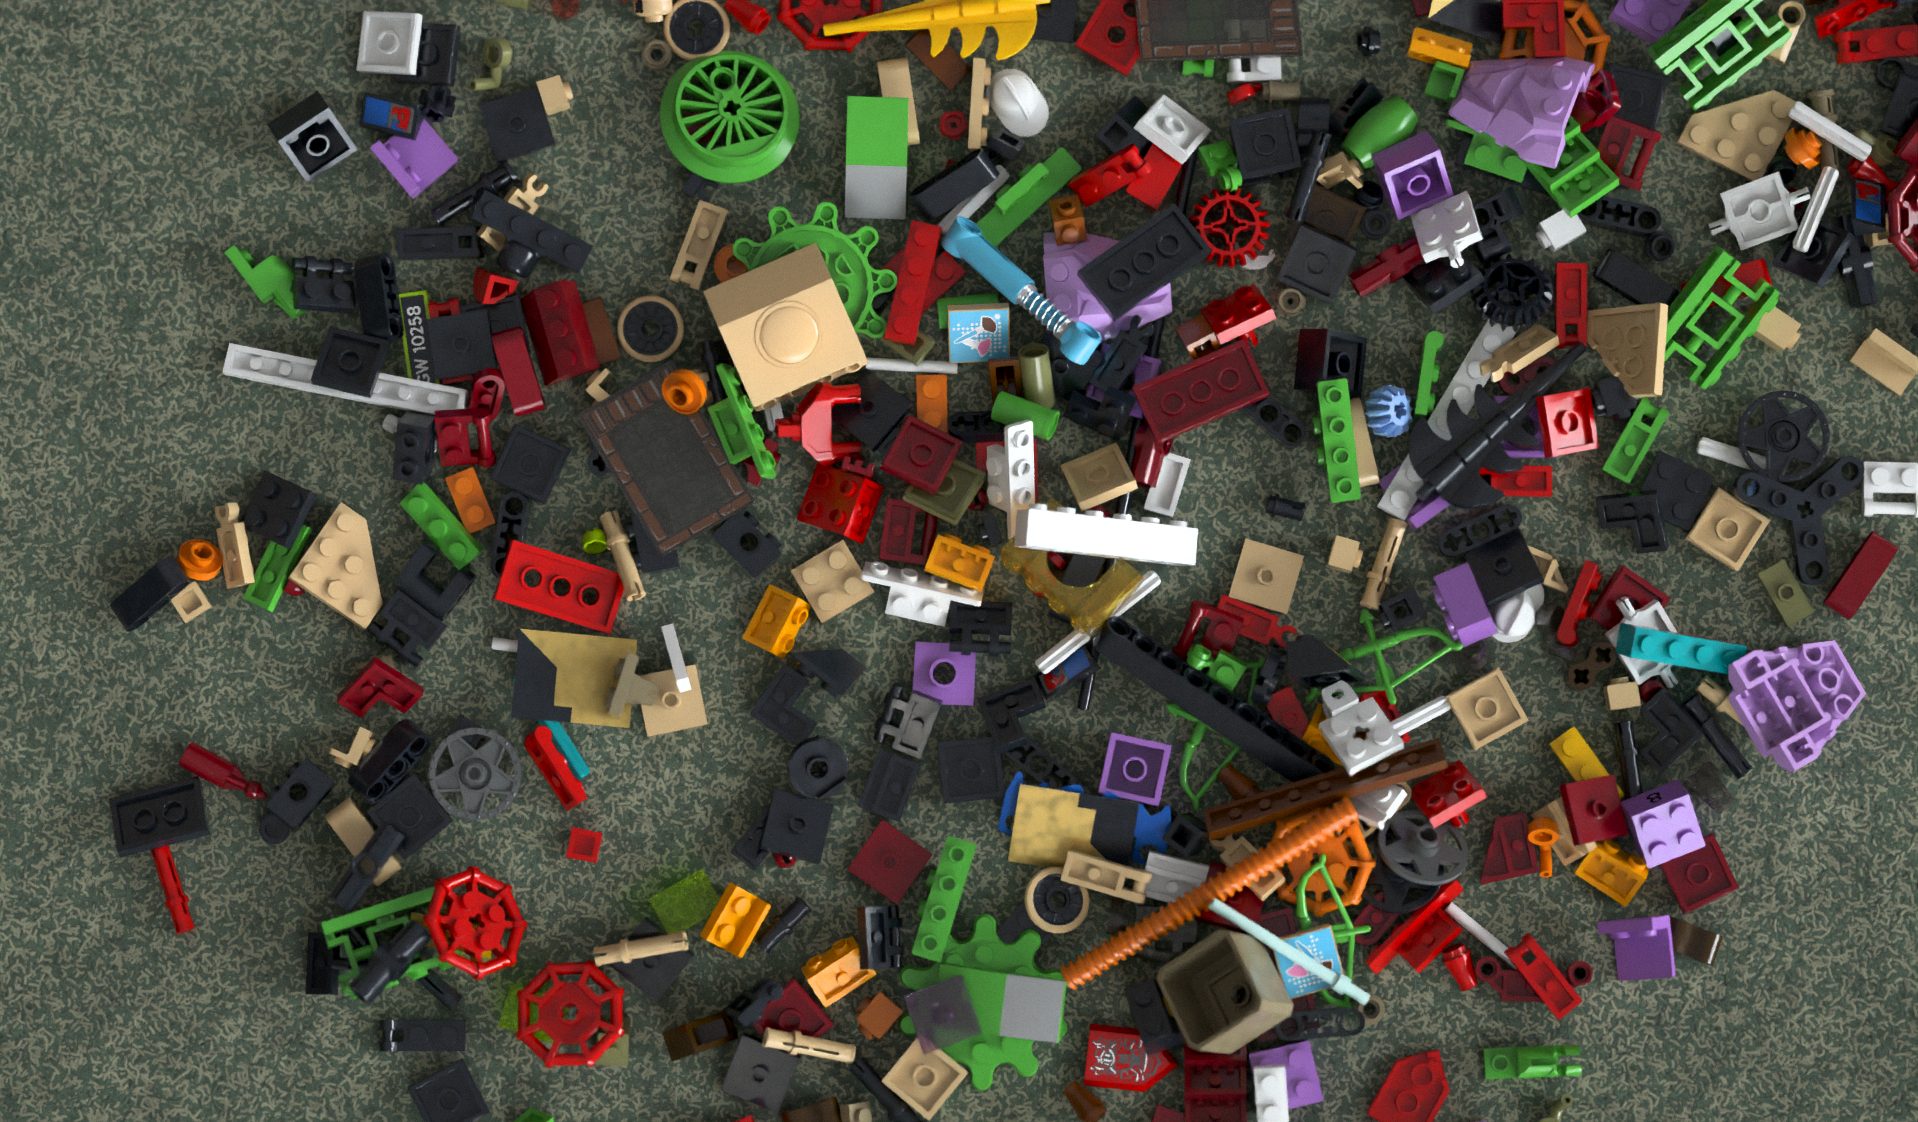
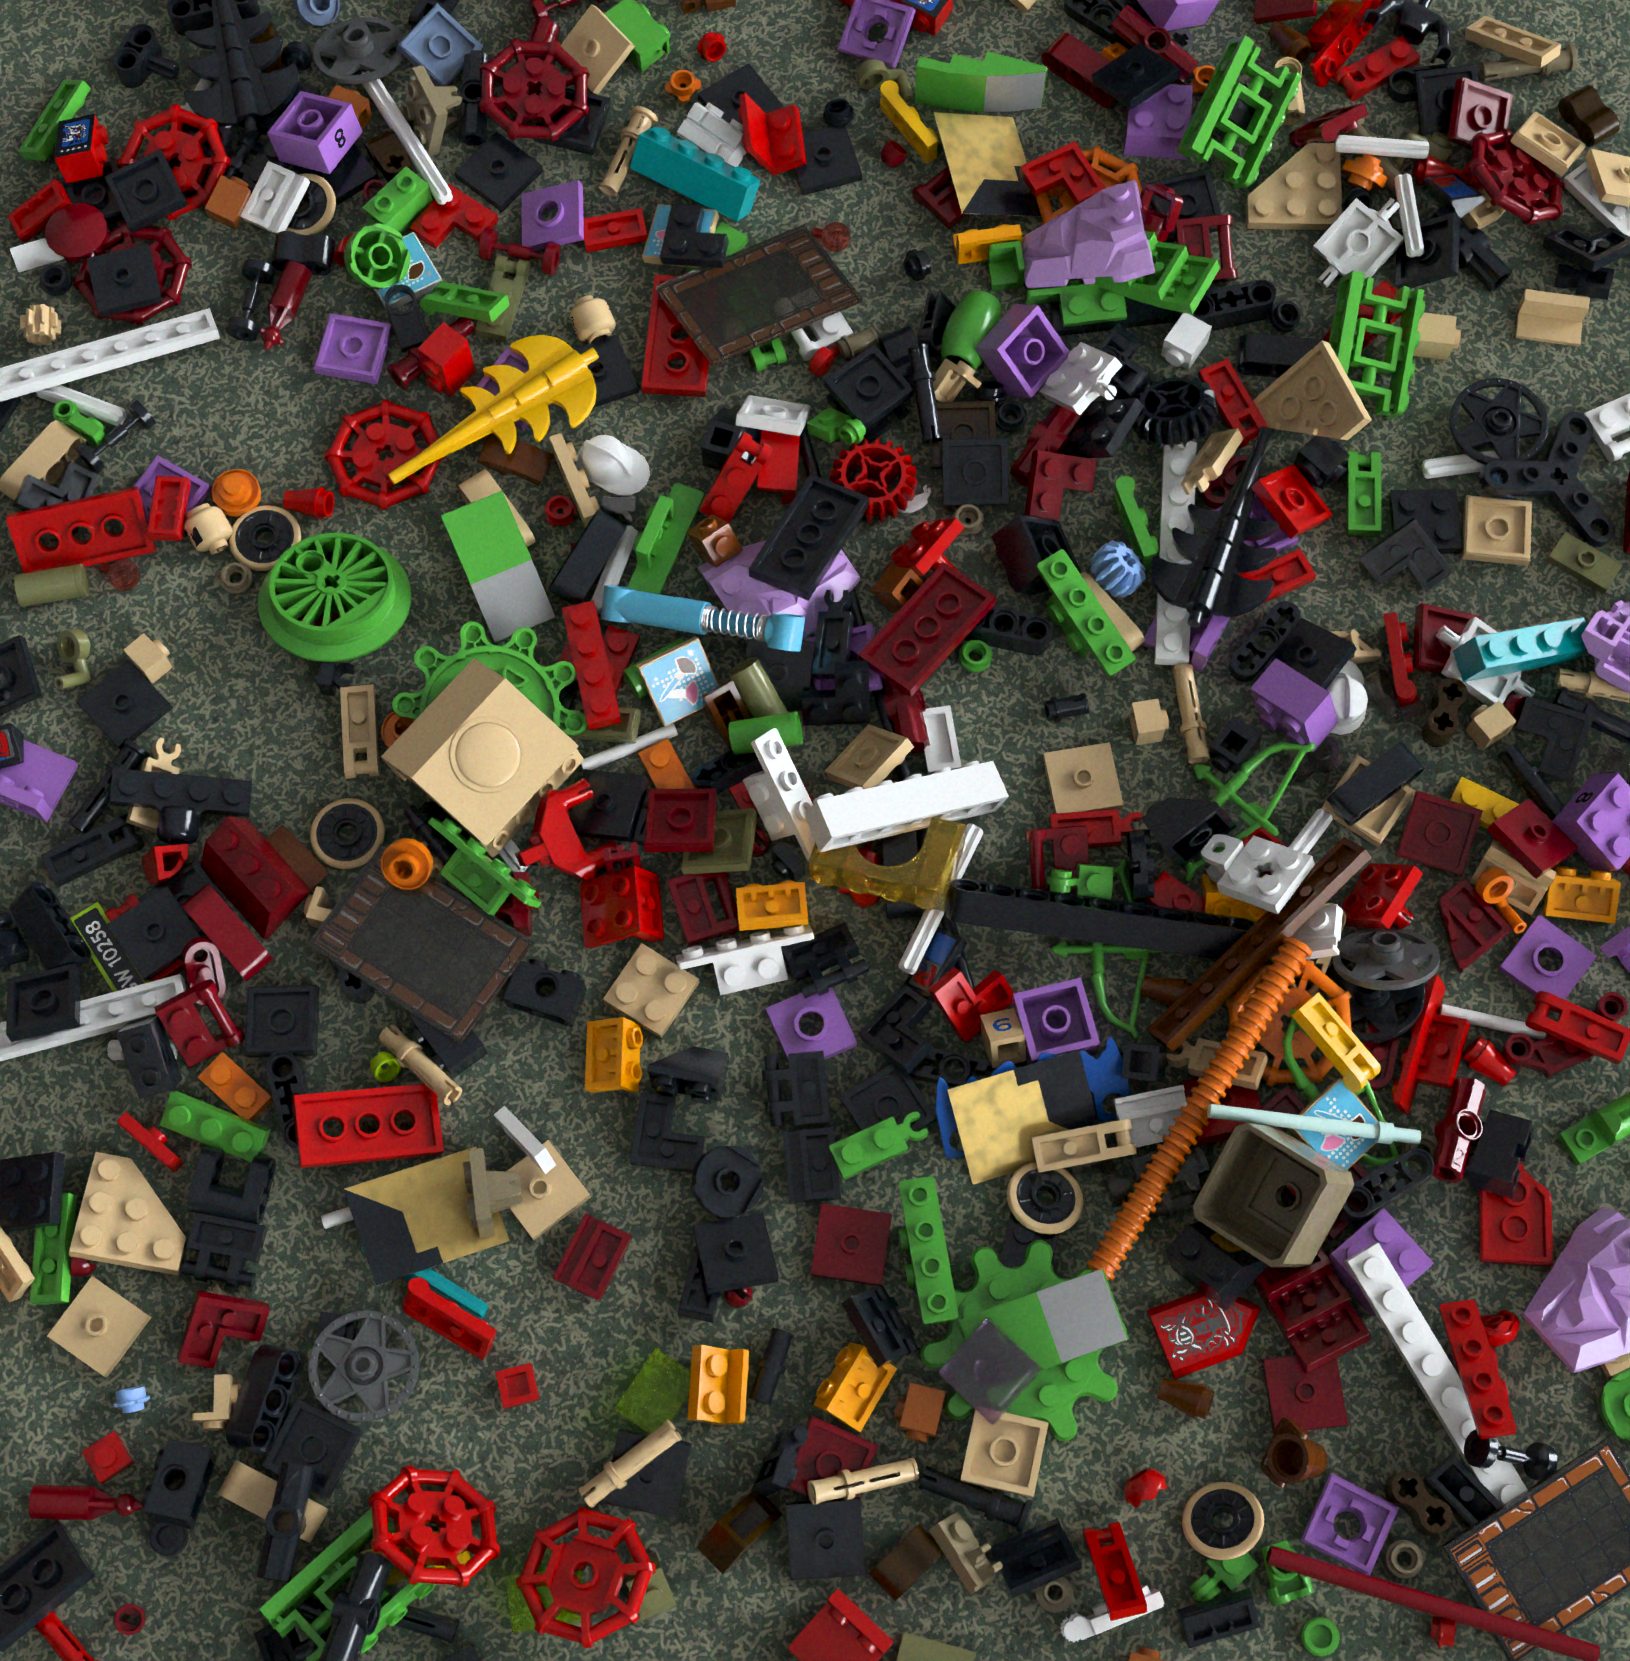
camera: 25 degrees left, 15 degrees down
(217, 882) = (126, 1627): none -> dark red hinge
(254, 746) = (108, 1457): none -> red plate
(287, 641) = (99, 1326): none -> tan plate
(289, 710) = (131, 1399): none -> light blue plate
(388, 514) = (152, 1140): none -> red plate
(436, 102) = (31, 717): black gear -> none
(686, 774) = (592, 1257): none -> dark red plate
(944, 796) = (874, 1145): none -> bright green plate
(1077, 724) = (965, 1005): none -> red plate
(1088, 760) = (1003, 1037): none -> tan brick
(1241, 419) = (980, 648): none -> bright green plate
(1341, 897) = (1337, 1043): none -> yellow plate
(1377, 299) = (1052, 474): none -> dark red plate
(1391, 1019) = (1458, 1129): none -> dark red piece
(1422, 1041) = (1498, 1153): none -> black brick
(1495, 701) = (1375, 784): none -> black beam
(1527, 764) = (1438, 833): none -> dark red plate
(1533, 903) = (1523, 963): none -> medium lavender piece
(1804, 84) = (1327, 125): none -> dark red plate

